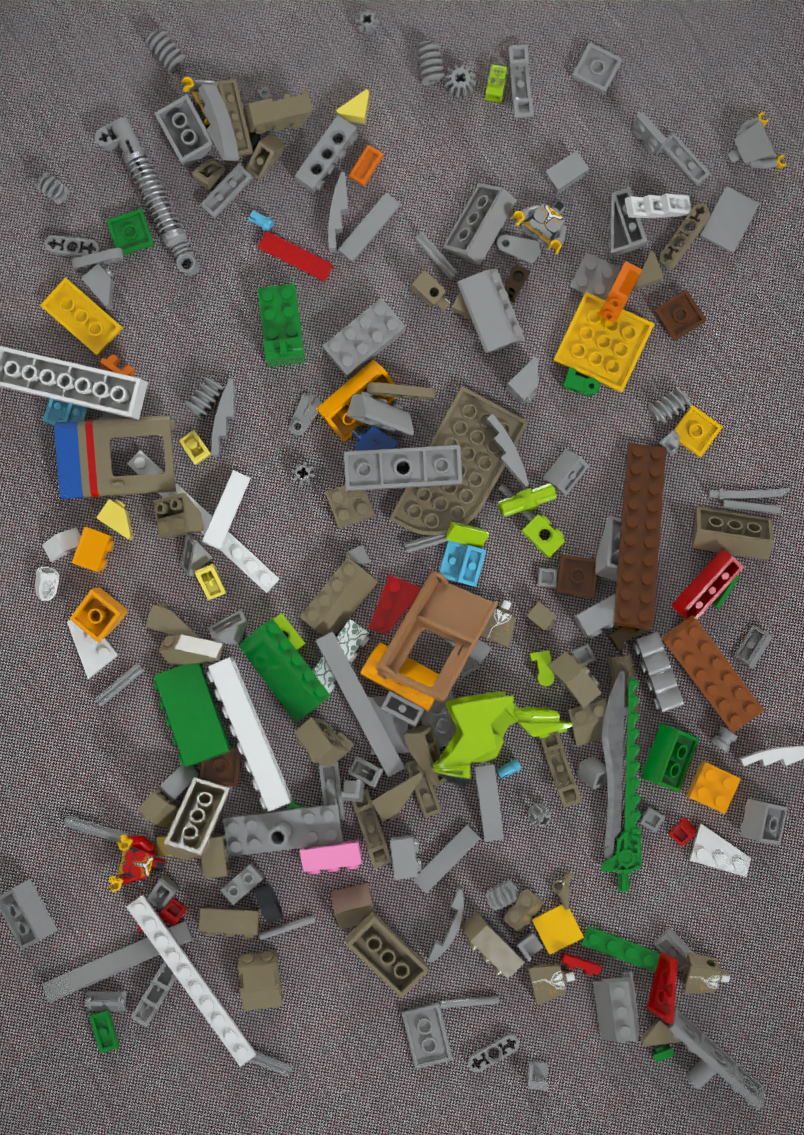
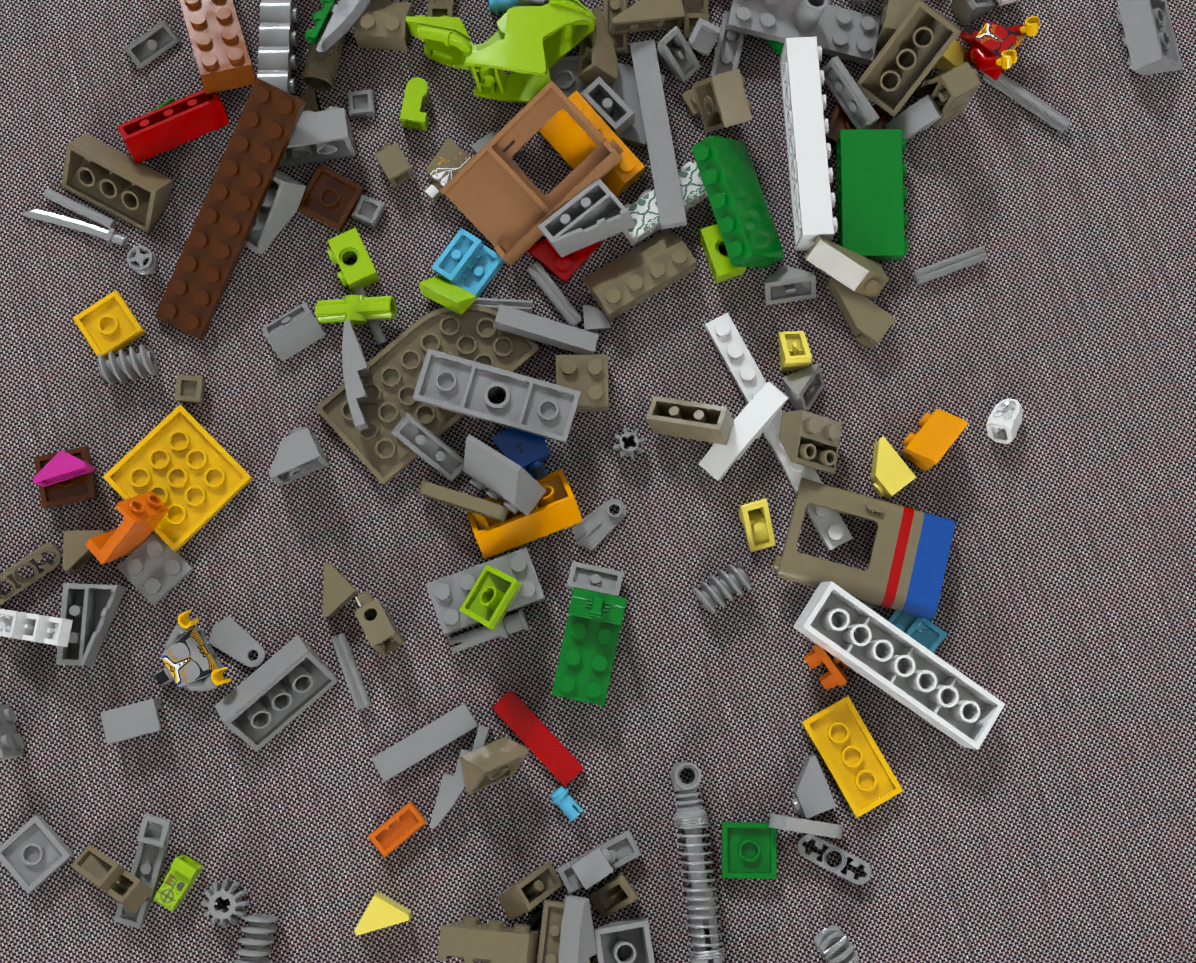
camera: 165 degrees left, 5 degrees down
(62, 544) = (967, 464): white slope -> none
(92, 654) = (970, 327): white wing -> none
(98, 614) = (950, 355): light orange slope -> none
(225, 411) = (702, 559): light grey slope -> none
(228, 184) = (593, 866): none -> light grey brick
(231, 781) = (849, 94): none -> light grey tile
(265, 501) = (690, 420): none -> dark tan brick
(293, 372) = (594, 578): none -> light grey plate
(319, 226) = (491, 764): none -> dark tan slope
(338, 128) = (414, 894): light grey brick -> none
(351, 314) = (509, 625): none -> light grey pin
(356, 329) = (491, 597): none -> lime slope
(387, 617) = (586, 220): none -> light grey wedge
(388, 532) = (545, 330): none -> light grey tile
(392, 563) = (554, 294): none -> light grey axle
(439, 422) = (429, 447): none -> light grey tile
(491, 310) = (305, 565): light grey slope -> none
(516, 281) = (261, 595): dark brown leg -> none
(539, 69) = (111, 878): none -> dark tan slope
(575, 678) = (380, 68): dark tan brick -> none
(579, 384) = (223, 428): green leg -> none
(620, 405) = (189, 389): none -> dark tan plate
(671, 442) = (145, 321): light grey tile -> none
(682, 319) = (61, 468): none -> dark pink slope
(694, 481) = (136, 258): none -> light grey wheel

